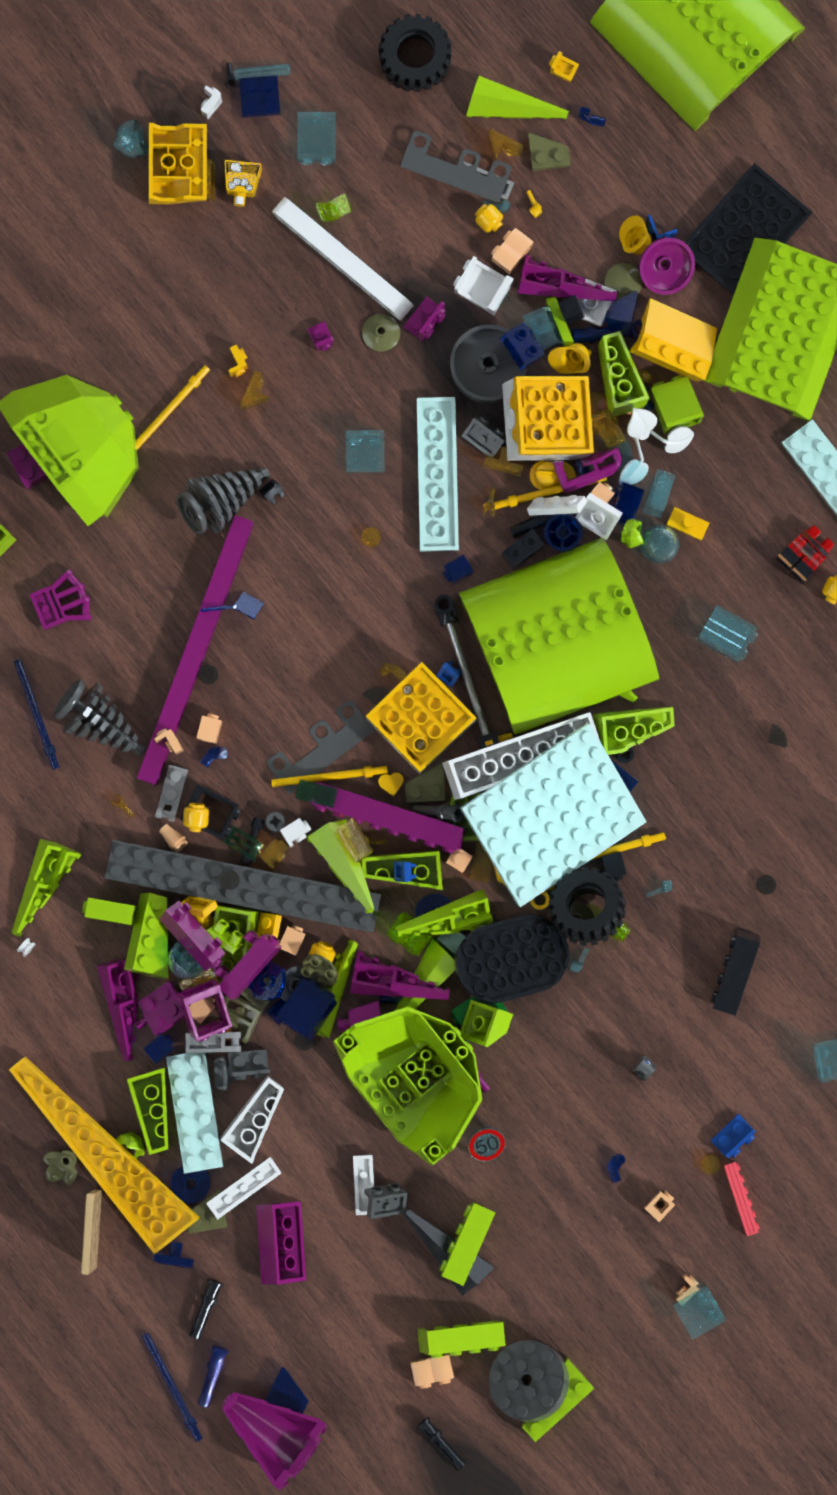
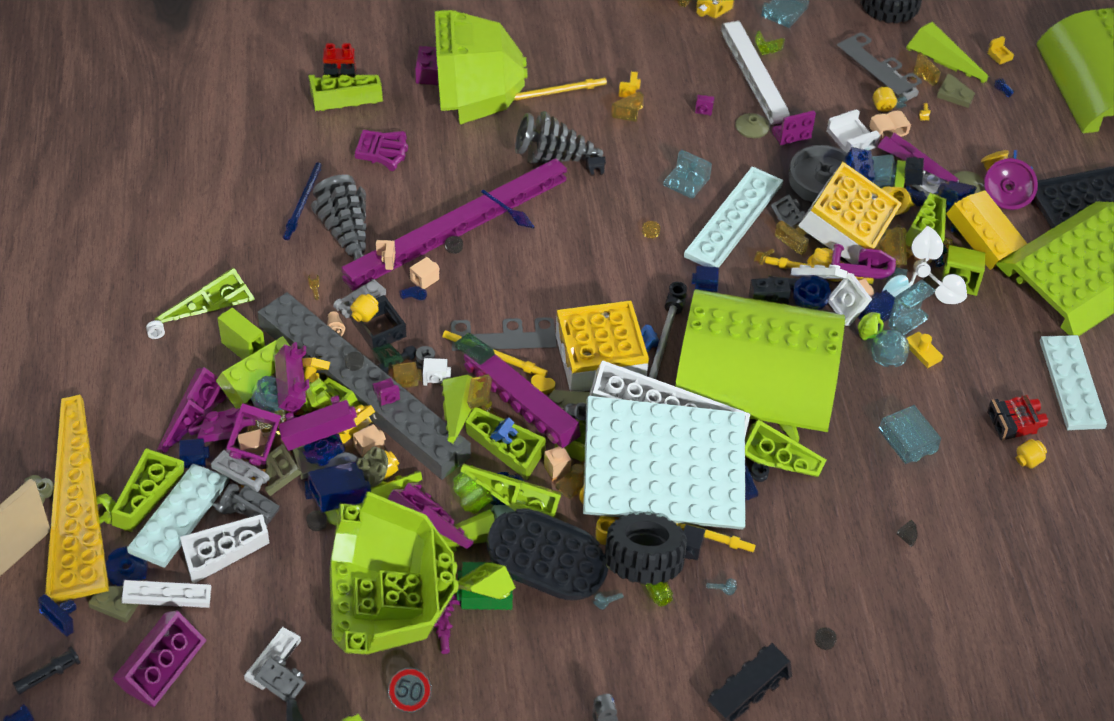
camera: 30 degrees right, 35 degrees down
(279, 894) = (386, 391): none -> magenta bracket

